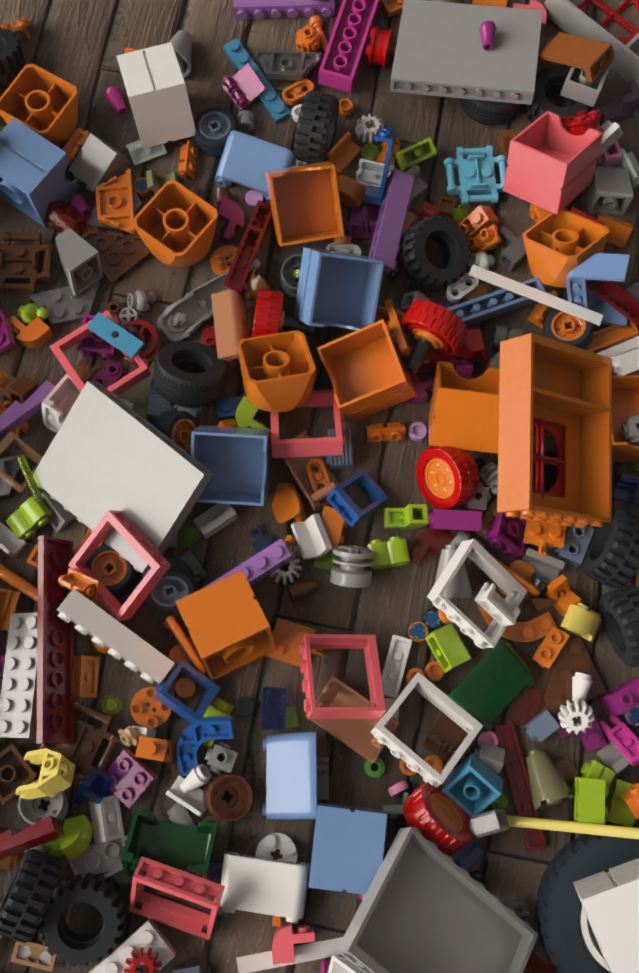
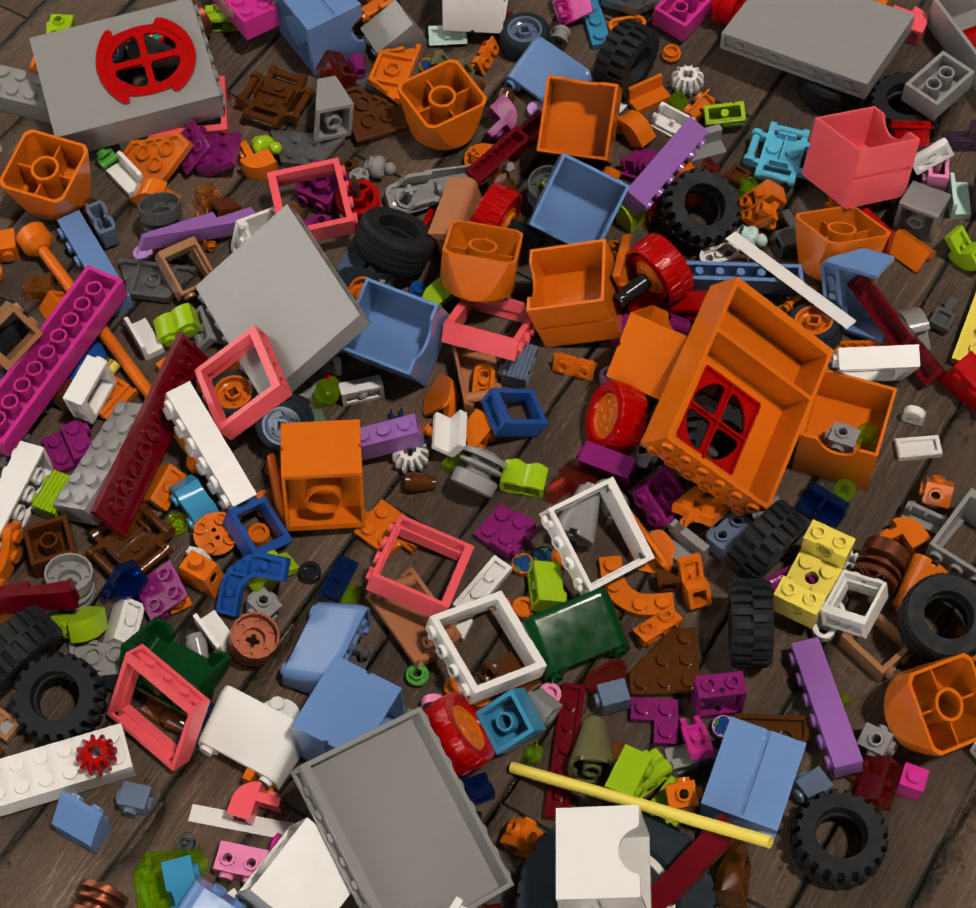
camera: 25 degrees right, 15 degrees down
(29, 477) = (193, 284): clear neon green piece -> none
(51, 779) = (92, 548): light yellow piece -> none
(82, 583) = (201, 385): orange hinge -> none
(108, 330) = (335, 180): dark azure tile -> none
(117, 681) = (192, 499): none -> dark azure brick
(129, 736) = (180, 550): tan plate -> none
(197, 777) = (228, 613): white cone -> none
(373, 193) = (683, 110): blue panel -> none
(392, 607) = (505, 531): none -> magenta plate
(407, 518) = (560, 451): lime brick -> none
(487, 34) = (842, 18): magenta cone -> none
(489, 823) = (511, 758): light grey brick -> none
(496, 605) = (609, 550): white hinge -> none
(520, 880) = (521, 836): none -> orange brick
(539, 581) = (672, 554): black tile -> none
(576, 716) = (659, 698): white gear -> none
(578, 52) = (932, 60): dark orange panel -> none
(580, 686) = (673, 668): white cone -> none
(581, 621) = (702, 609): light yellow brick -> none

